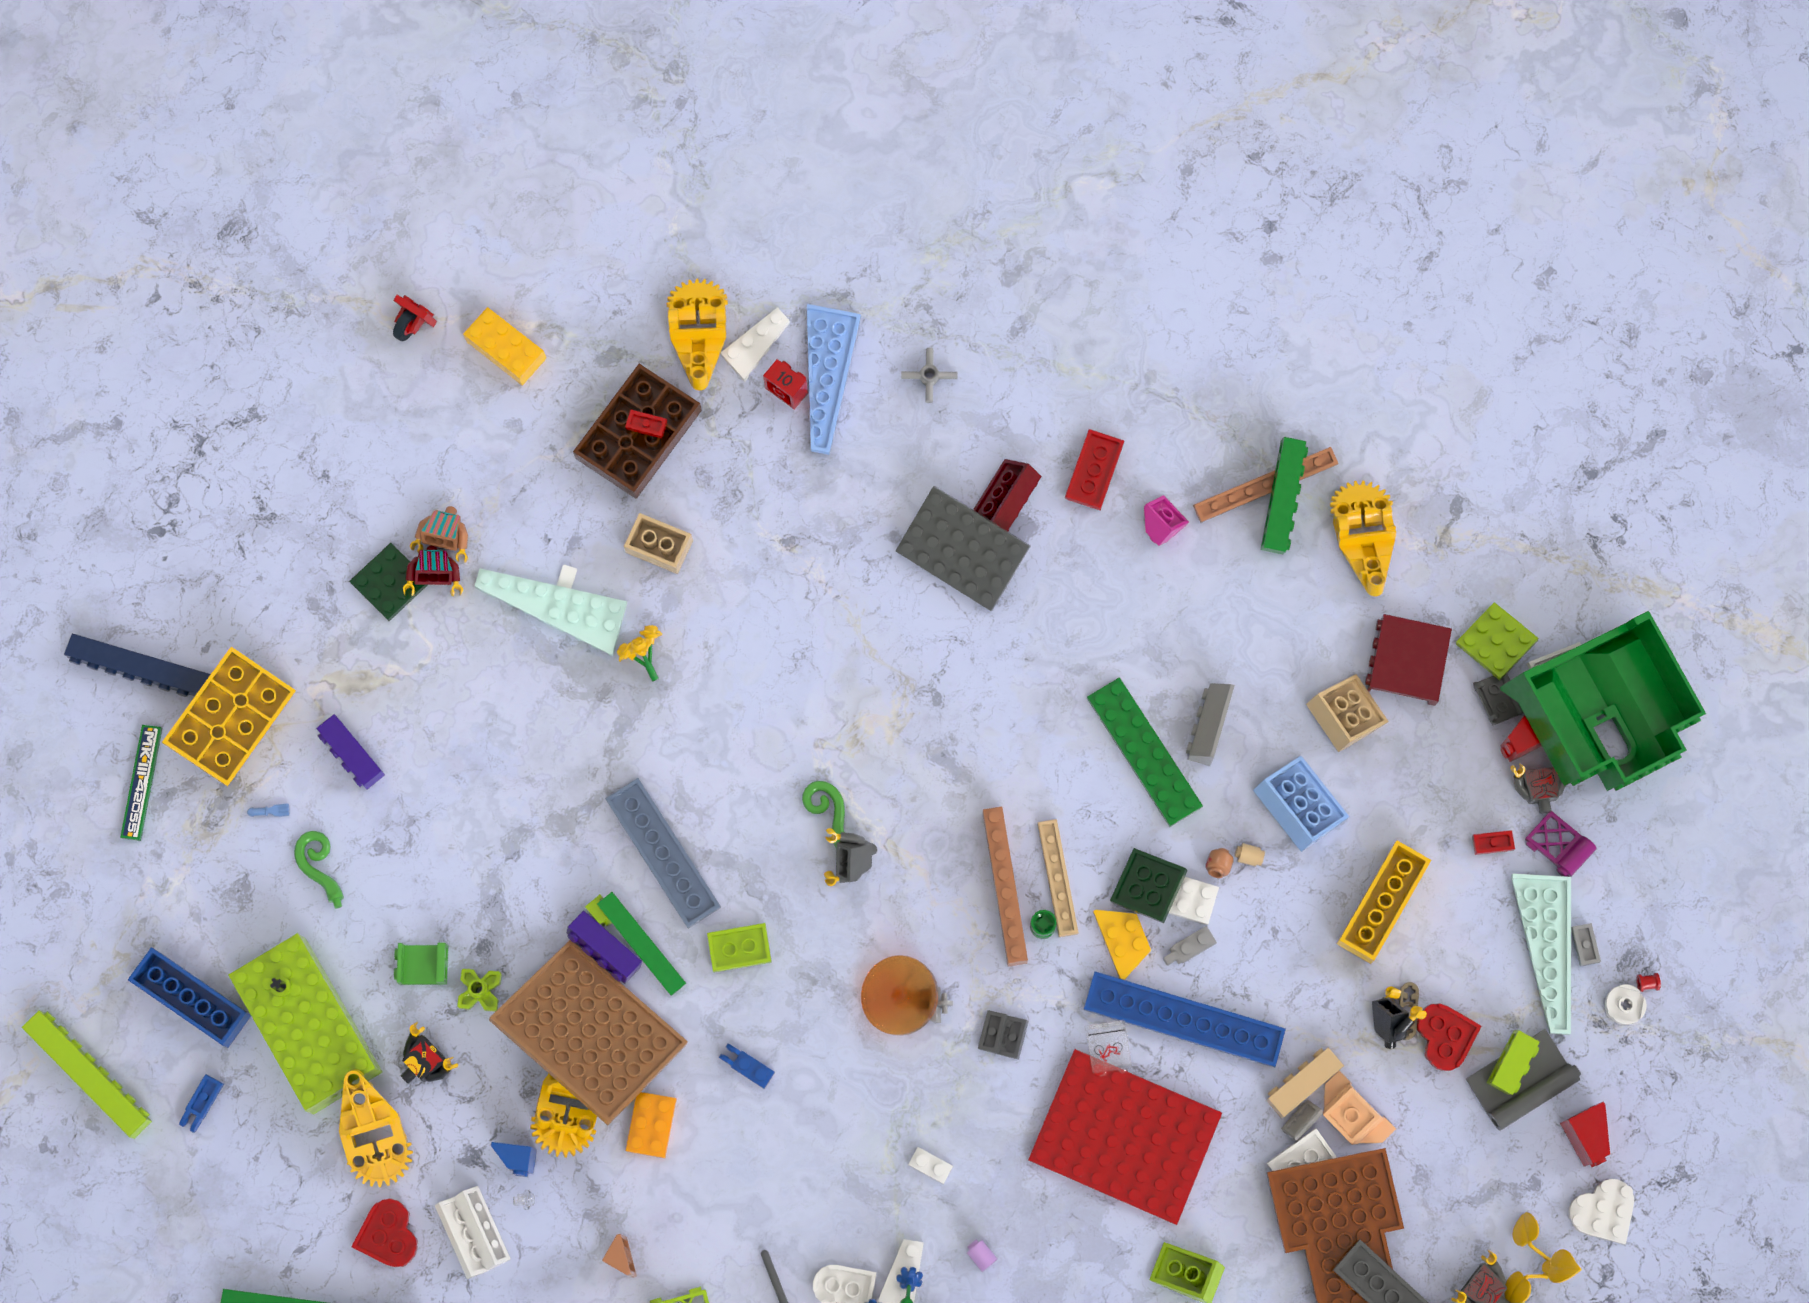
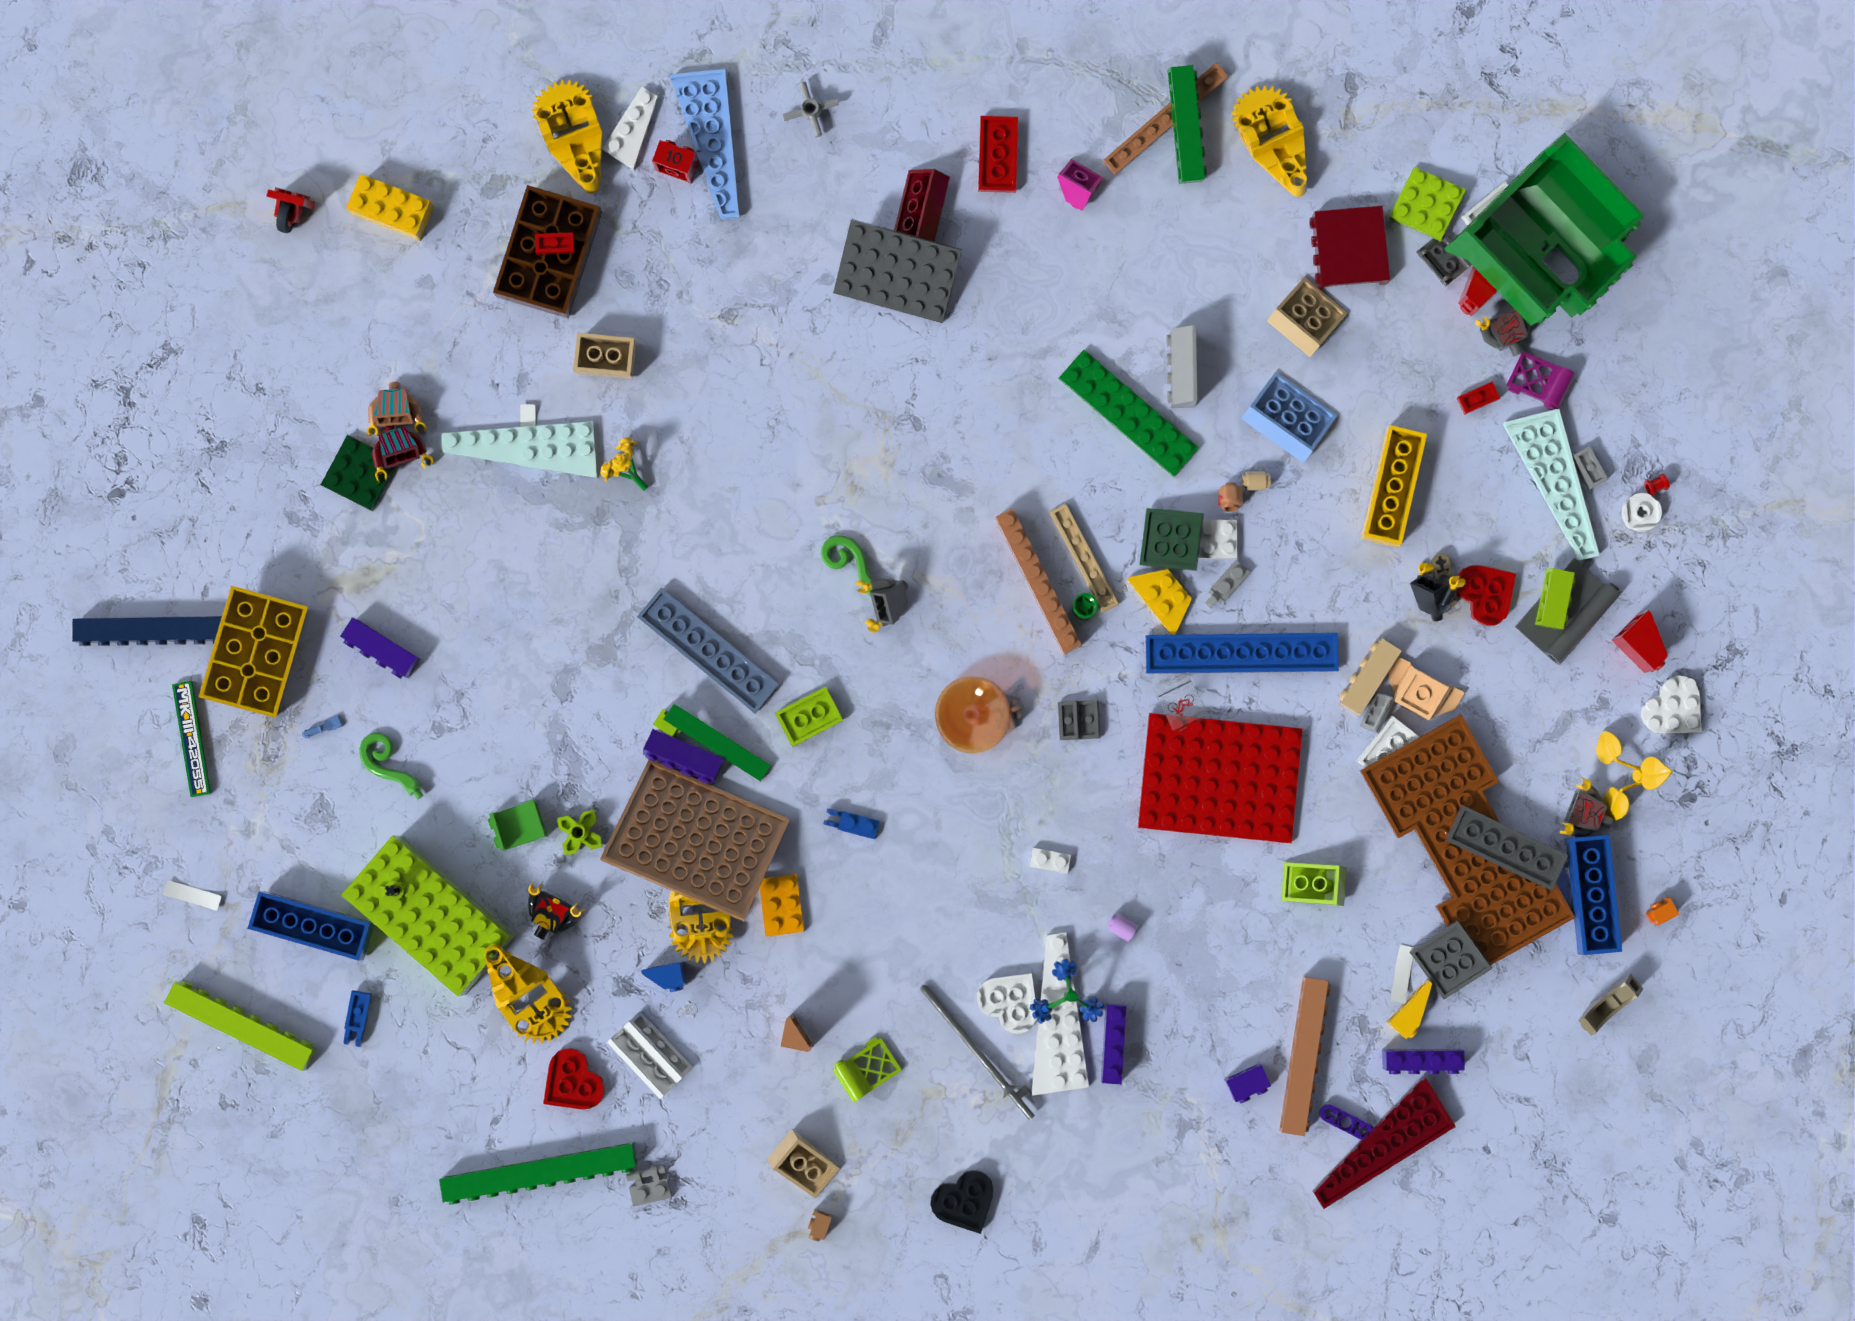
camera: 15 degrees left, 10 degrees up
(87, 932) = (192, 895): none -> white sticker

